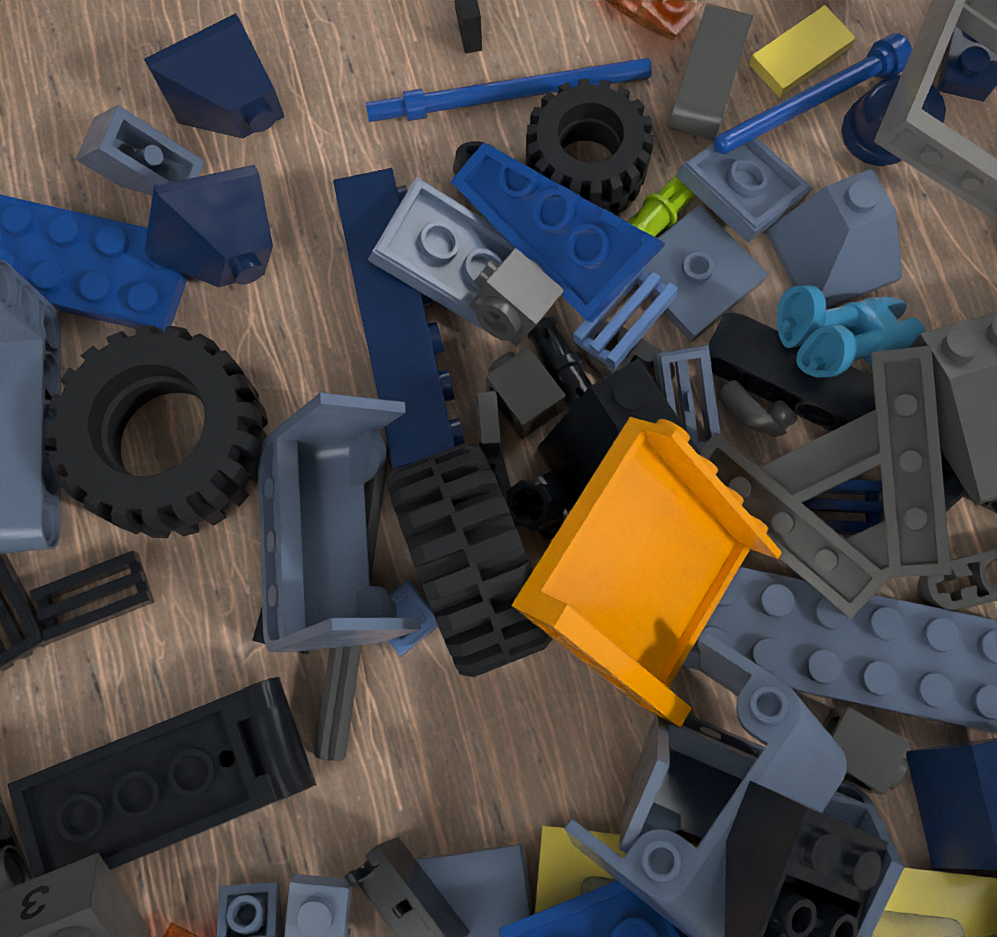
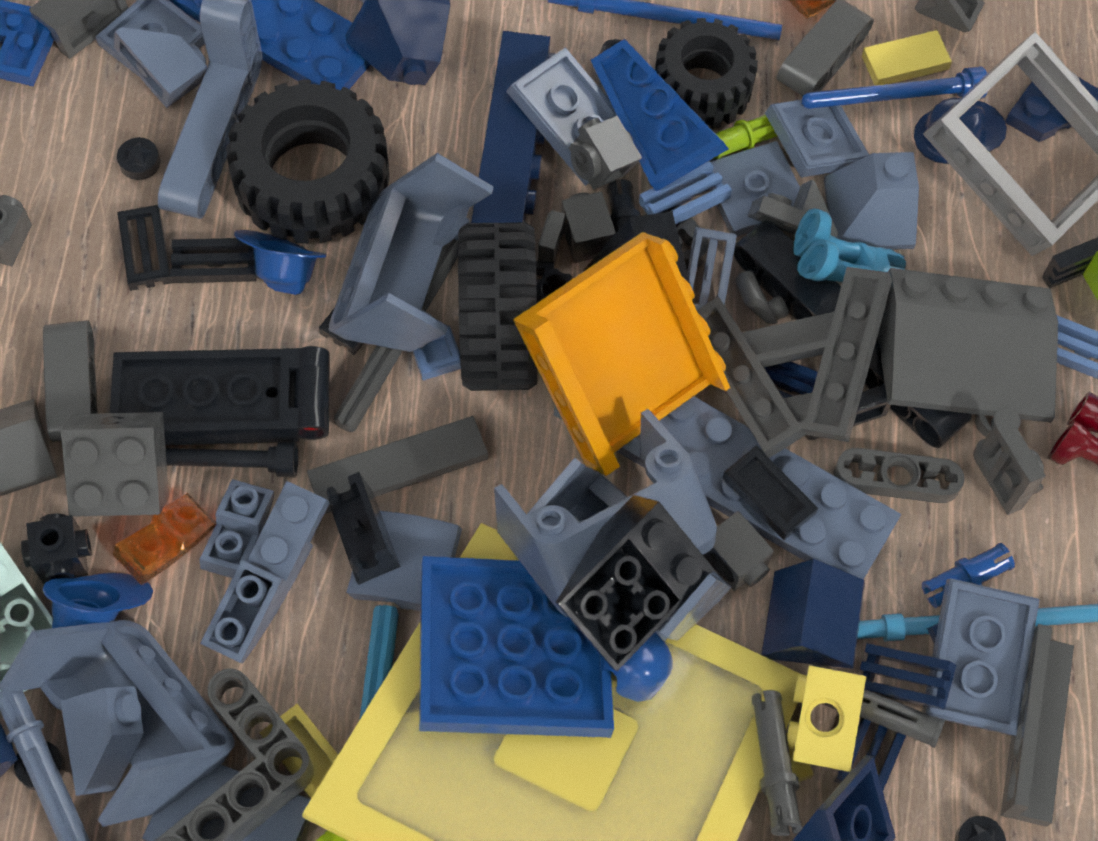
camera: 15 degrees right, 10 degrees down
(170, 570) = (280, 262): none -> blue piece
(269, 836) = (278, 459): none -> black piece
(413, 784) = (405, 460): none -> dark grey tile
(770, 278) = (779, 211): none -> dark grey slope
(873, 664) = (770, 493): none -> black tile

